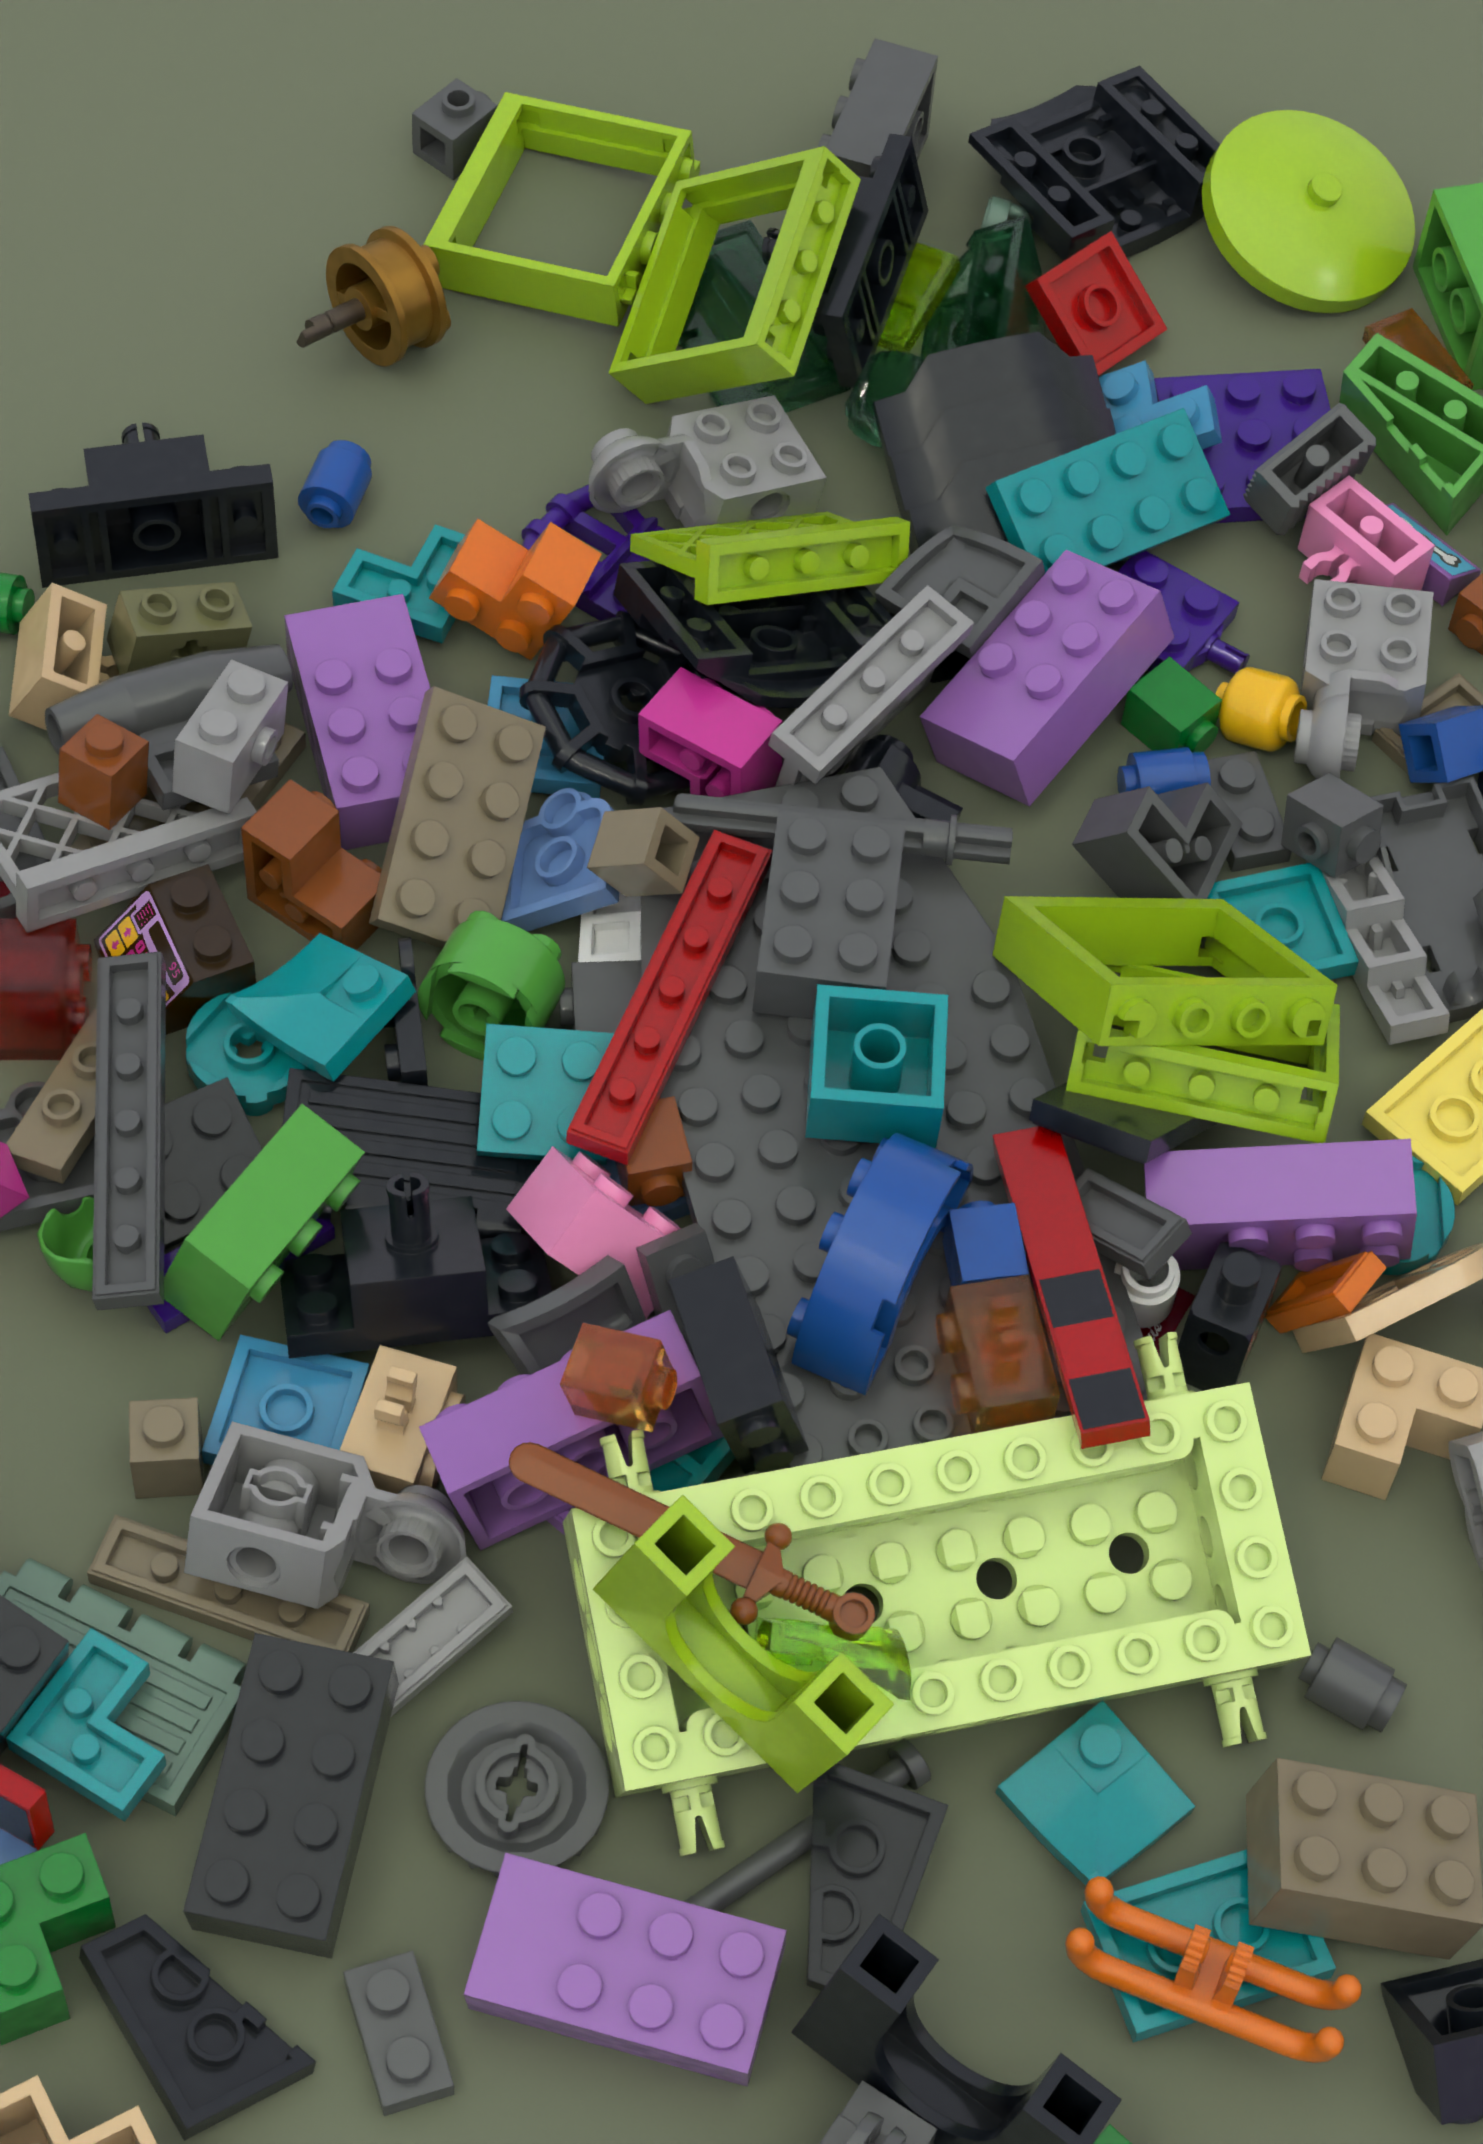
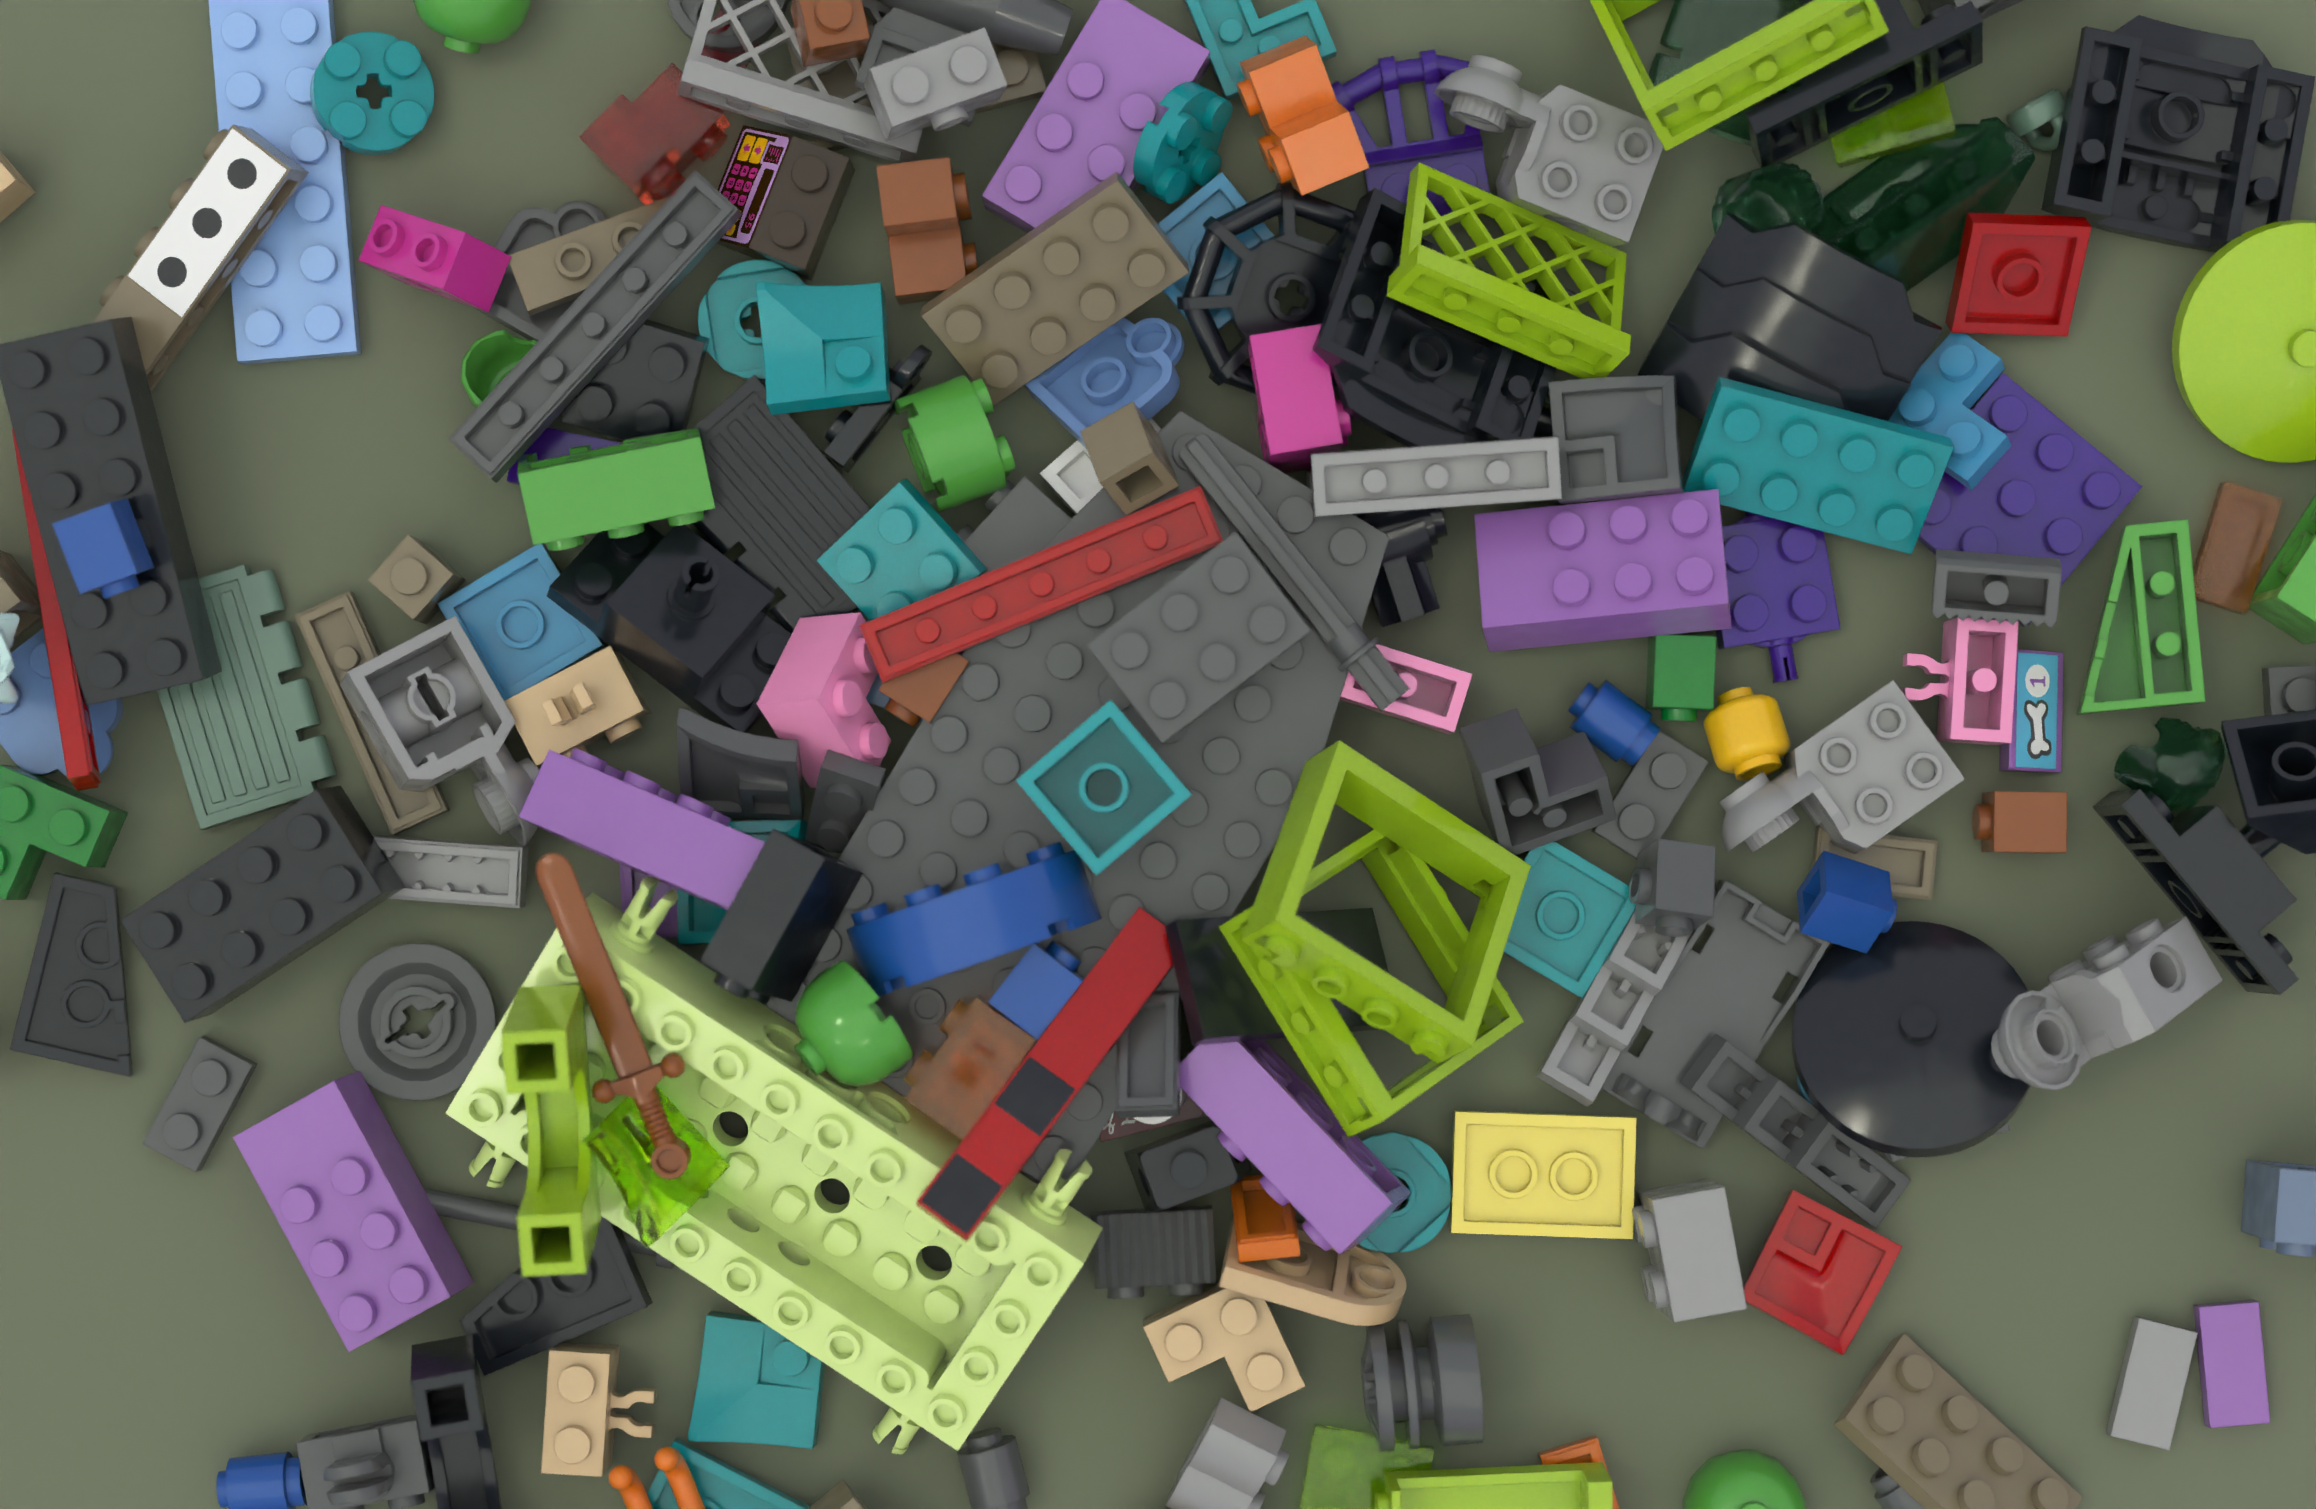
camera: 50 degrees right, 30 degrees up
(74, 1731) = (171, 732): teal plate -> none
(440, 659) = (1184, 143): none -> teal plate
(619, 1377) = (672, 866): clear orange brick -> none
(882, 1386) = (847, 1029): none -> bright green cylinder
(986, 1949) = (583, 1409): none -> tan brick
(1035, 867) = (1433, 695): none -> bright pink brick
(1290, 1392) = (1154, 1250): none -> dark grey brick

